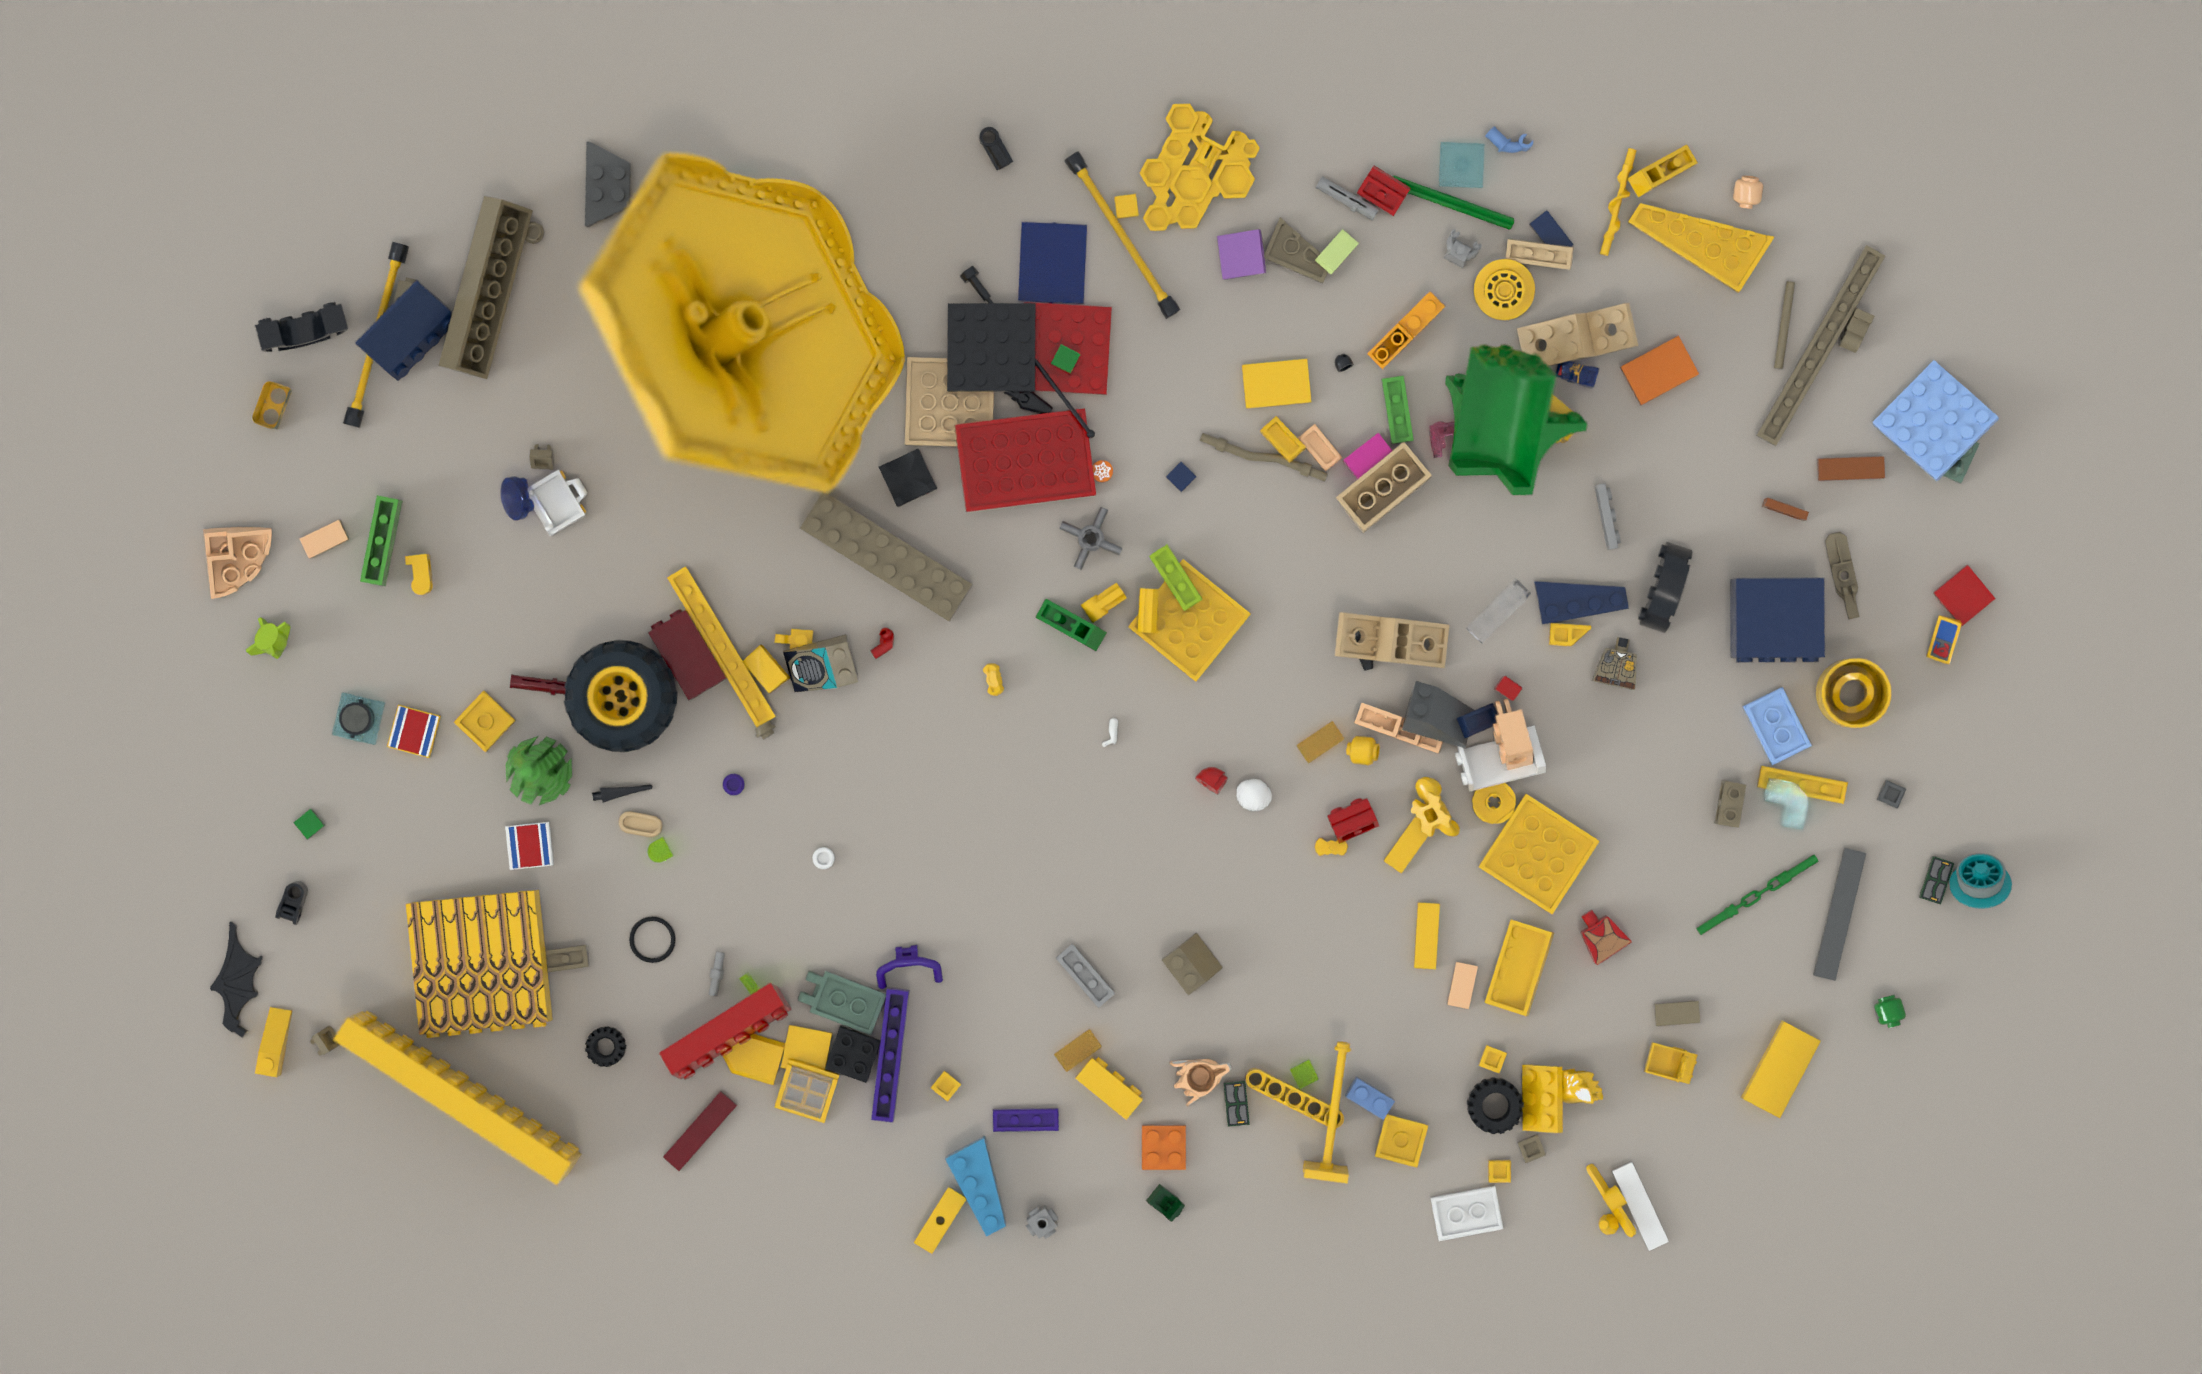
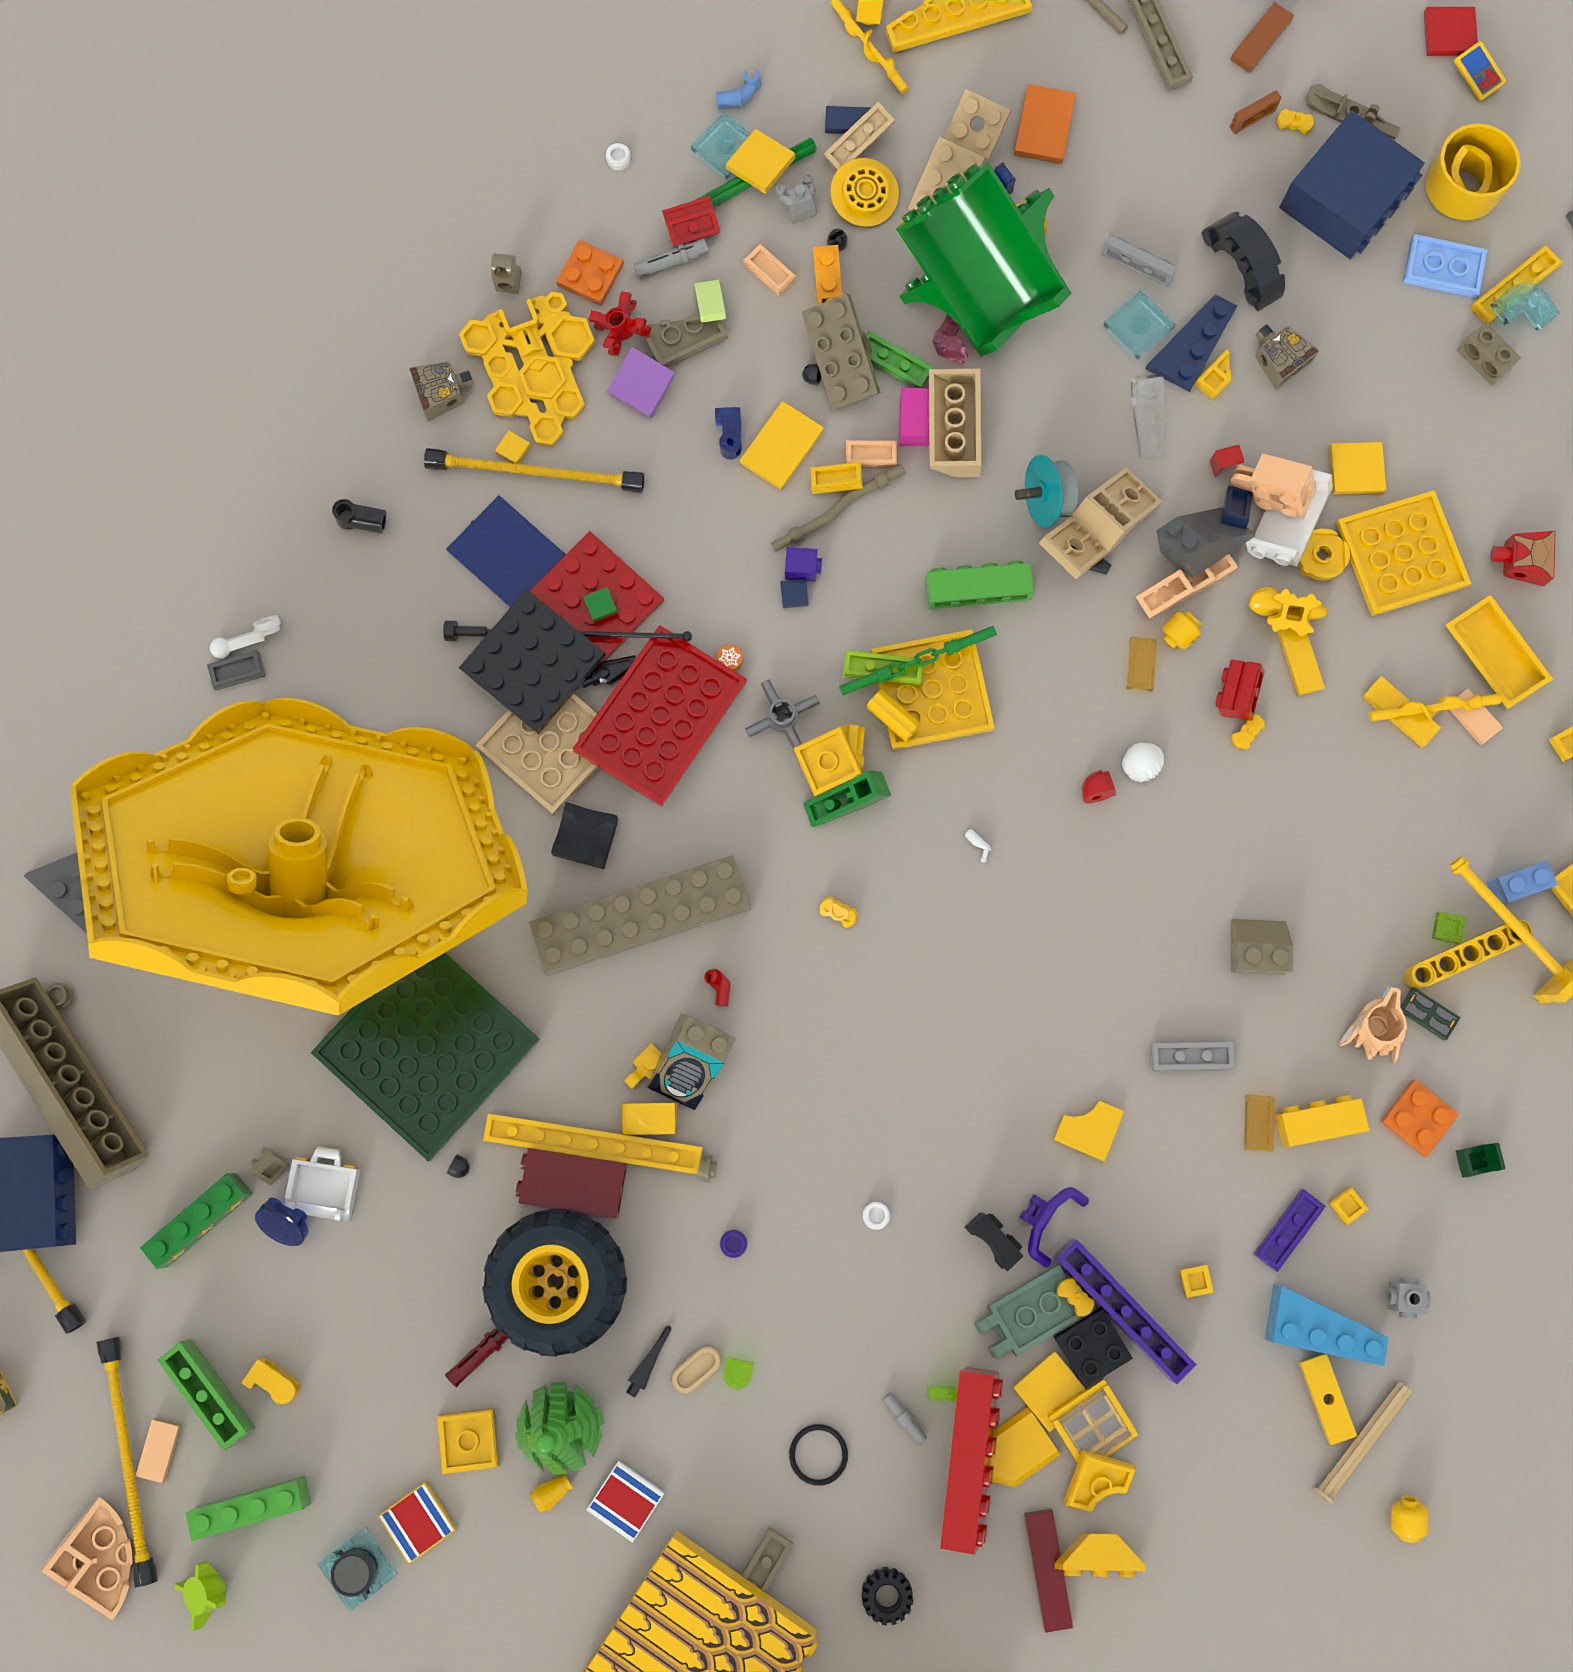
camera: 45 degrees left, 10 degrees down
(254, 589) = (143, 1568): none -> yellow hose
(338, 623) = (248, 1508): none -> bright green brick
(473, 443) = (196, 1220): none -> green brick
(496, 796) = (550, 1493): none -> yellow cone
(638, 576) = (459, 1167): none -> black hinge
(688, 506) = (426, 1052): none -> dark green plate
(733, 1153) = (1100, 1554): none -> yellow slope
(776, 1117) = (1097, 1478): none -> yellow tile
(828, 156) = (236, 670): none -> dark grey tile
(870, 932) = (1003, 1247): none -> black brick
(871, 151) = (221, 647): none -> white piece
(876, 1015) = (1075, 1296): none -> yellow piece
(908, 1322) = (1409, 1519): none -> yellow head
(933, 1262) = (1363, 1442): none -> tan axle
(986, 950) = (1090, 1132): none -> yellow tile
(1071, 1144) = (1348, 1205): none -> yellow tile
(1083, 593) = (828, 761): none -> yellow tile
(1126, 122) = (439, 387): none -> dark tan torso
(1169, 582) = (884, 673): none -> green piece
(1203, 466) = (802, 564): none -> dark purple brick
(1242, 98) = (505, 271): none -> dark tan leg
(1250, 348) = (730, 441): none -> clear blue leg
(1255, 211) = (619, 323): none -> red pin
(1285, 594) = (979, 585): none -> bright green brick
(1292, 151) = (590, 272): none -> orange plate
(1369, 373) = (841, 351): none -> dark tan plate
(1384, 589) = (1049, 490): none -> teal piece
(1393, 97) = (618, 156): none -> white tile
(1395, 270) = (769, 269): none -> light nougat tile
(1438, 952) = (1431, 710): none -> yellow piece
(1453, 303) = (841, 240): none -> black hinge
(1465, 201) = (760, 161): none -> yellow tile
(1561, 552) = (1139, 325): none -> clear light blue plate
(1576, 778) = (1357, 468): none -> yellow tile
(1804, 541) = (1295, 121): none -> yellow piece

